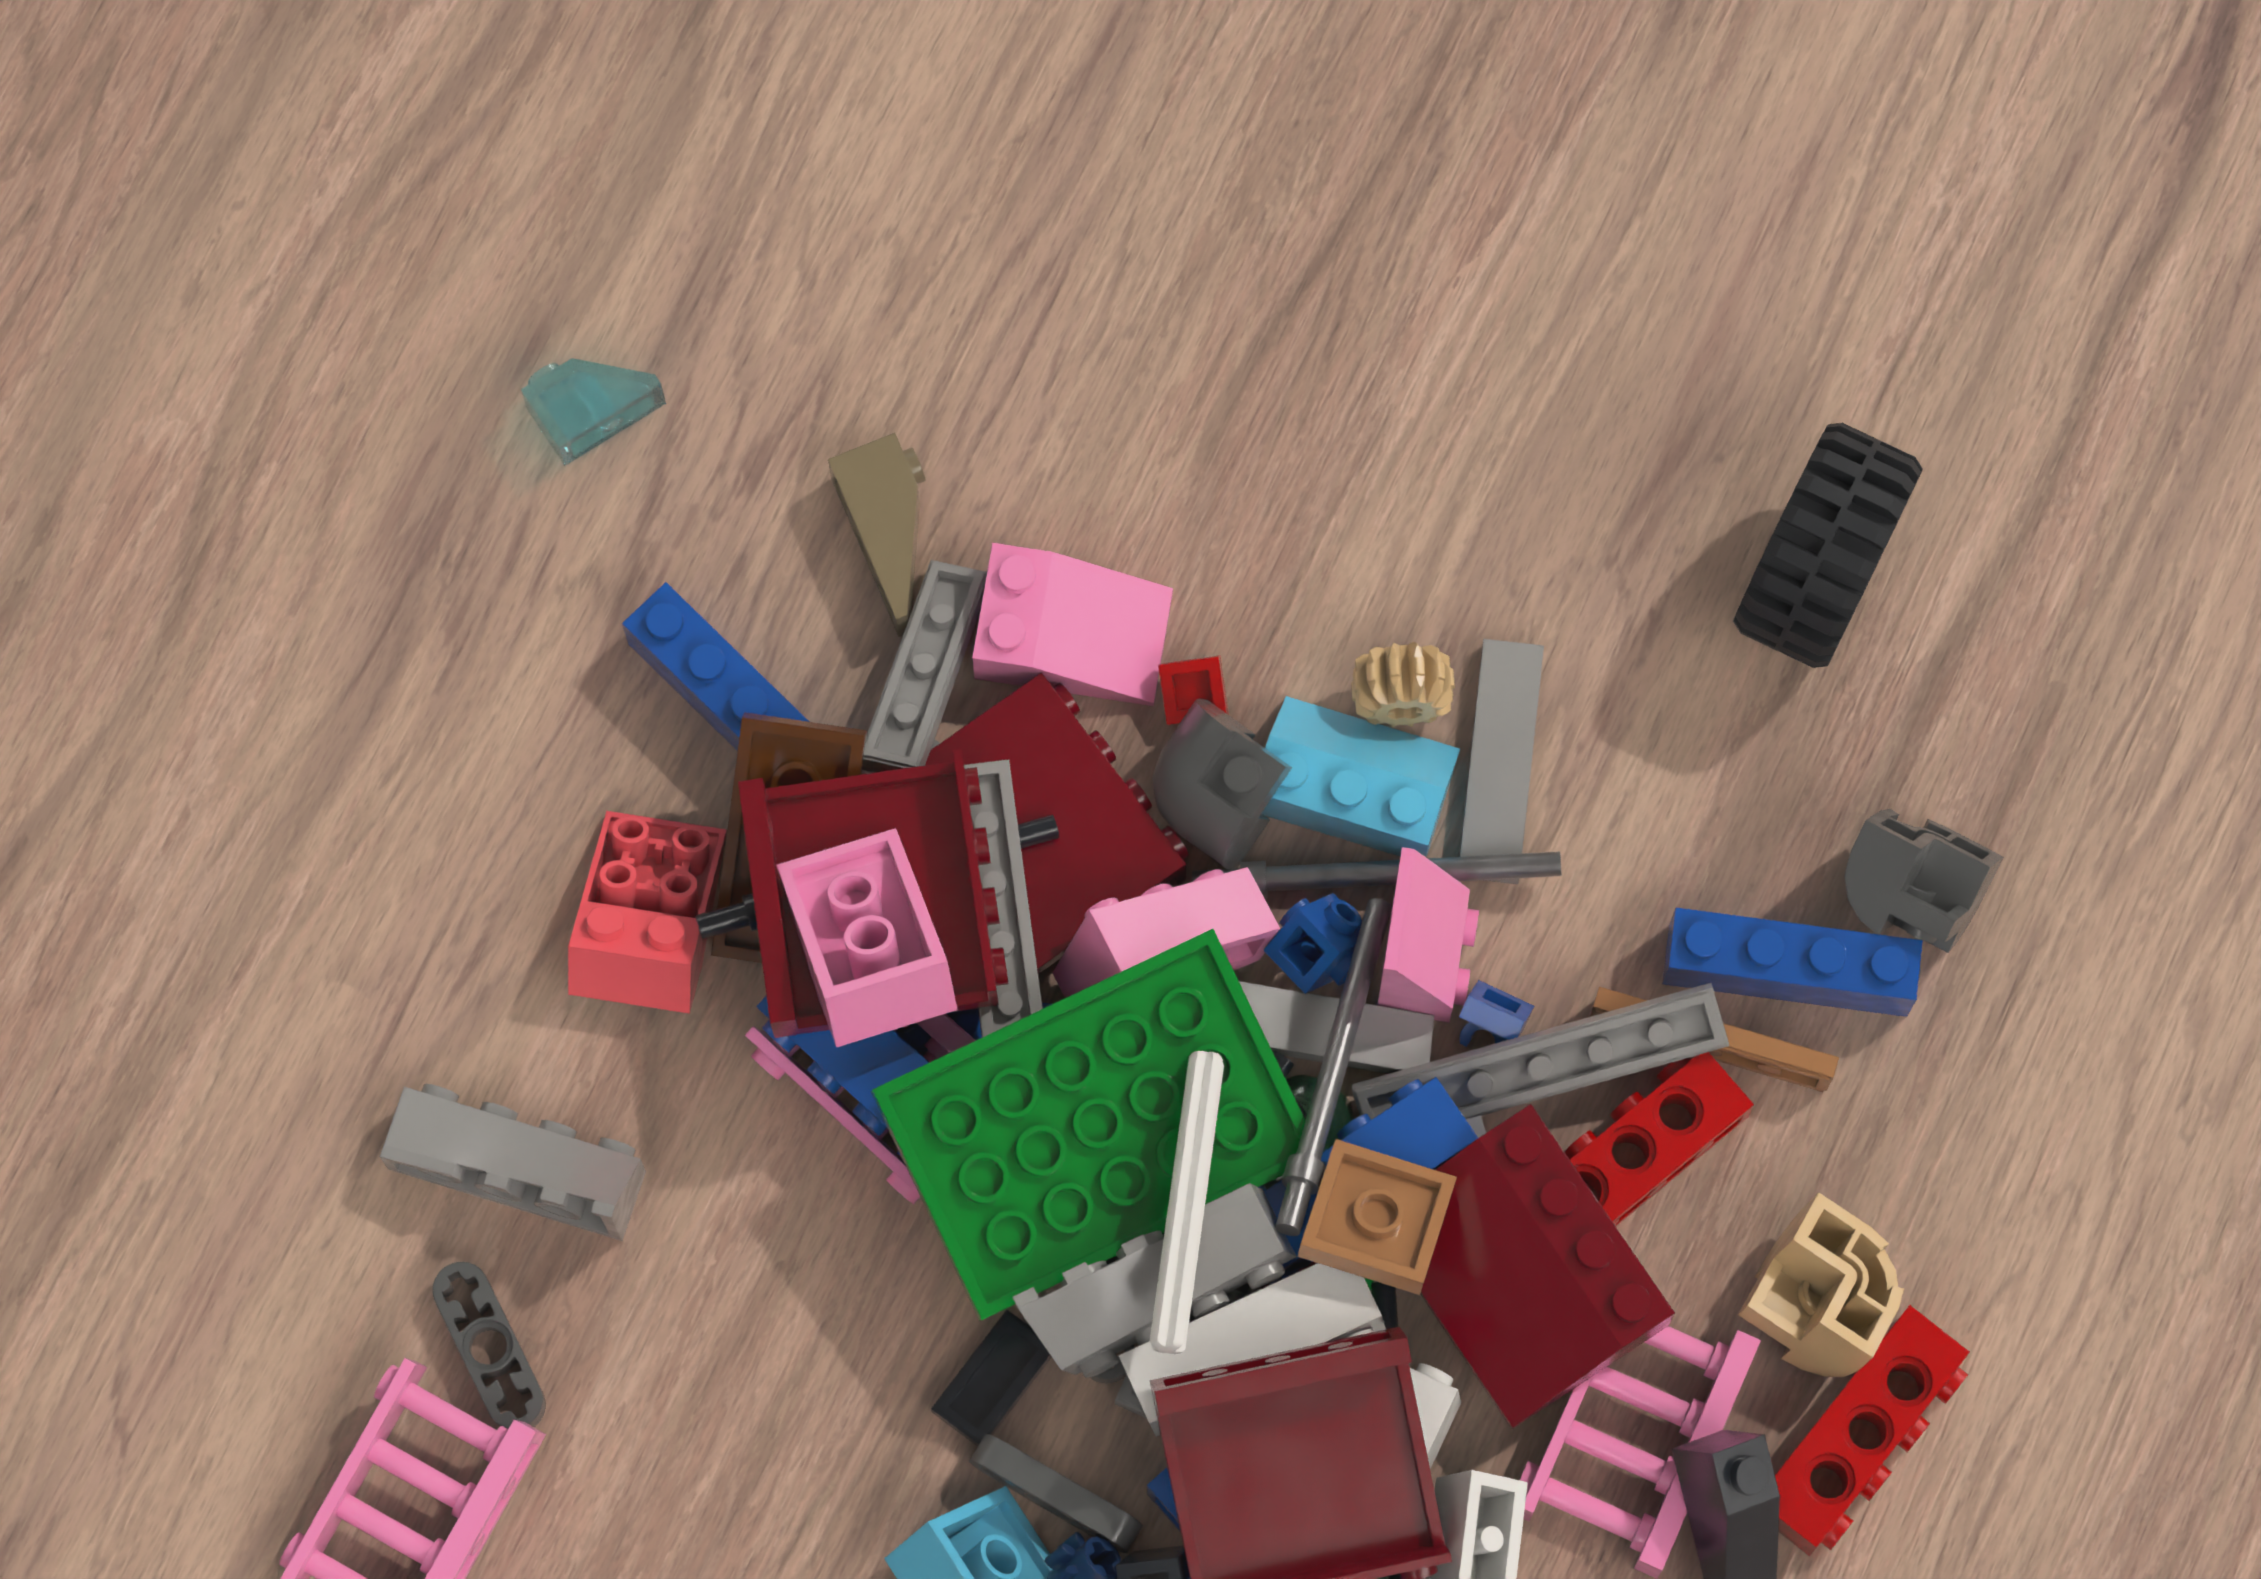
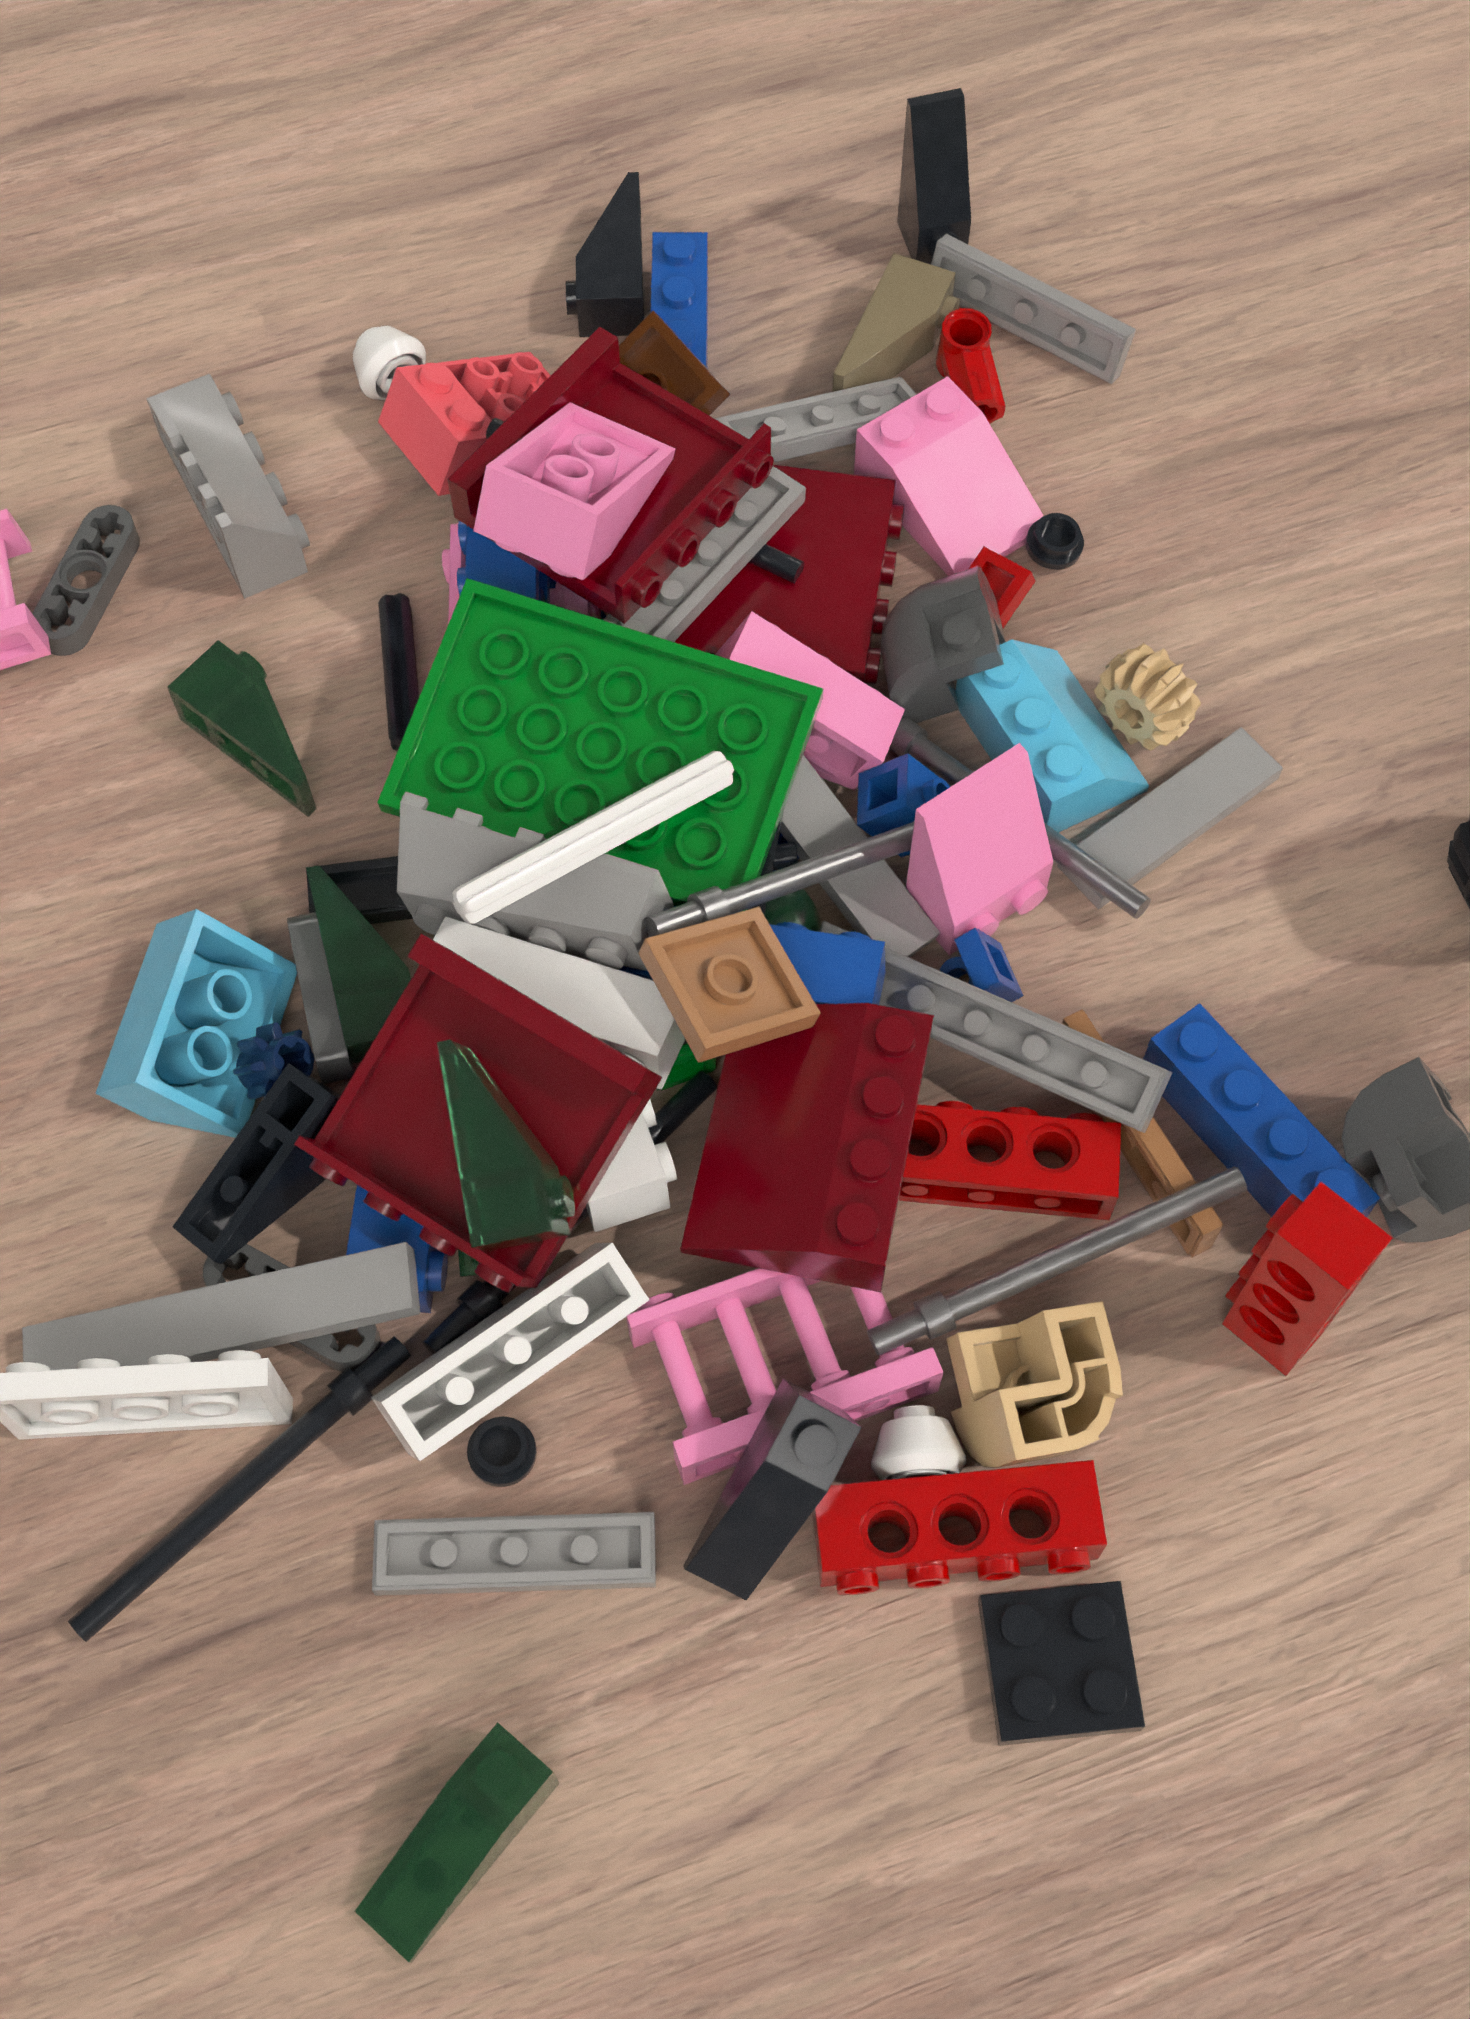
camera: 45 degrees right, 10 degrees down
(515, 934) = (379, 354): none -> white cone
(588, 403) = (780, 126): clear light blue slope -> none
(612, 685) = (611, 268): none -> black slope
(748, 1340) = (233, 709): none -> clear green slope
(806, 369) = (934, 173): none -> black slope
(821, 1187) = (398, 664): none -> black axle
(974, 403) = (1036, 310): none -> light grey tile
(988, 510) = (968, 360): none -> red piece
(1090, 1449) = (361, 965): none -> clear green slope
(1195, 602) = (1055, 541): none -> black plate
(1363, 1490) = (504, 1171): none -> clear green slope
(1718, 1303) = (937, 1313): none -> flat silver bar
(1787, 1405) = (917, 1445): none -> white cone
(1938, 1060) = (1302, 1275): none -> red brick
(2004, 1454) = (1060, 1663): none -> black plate

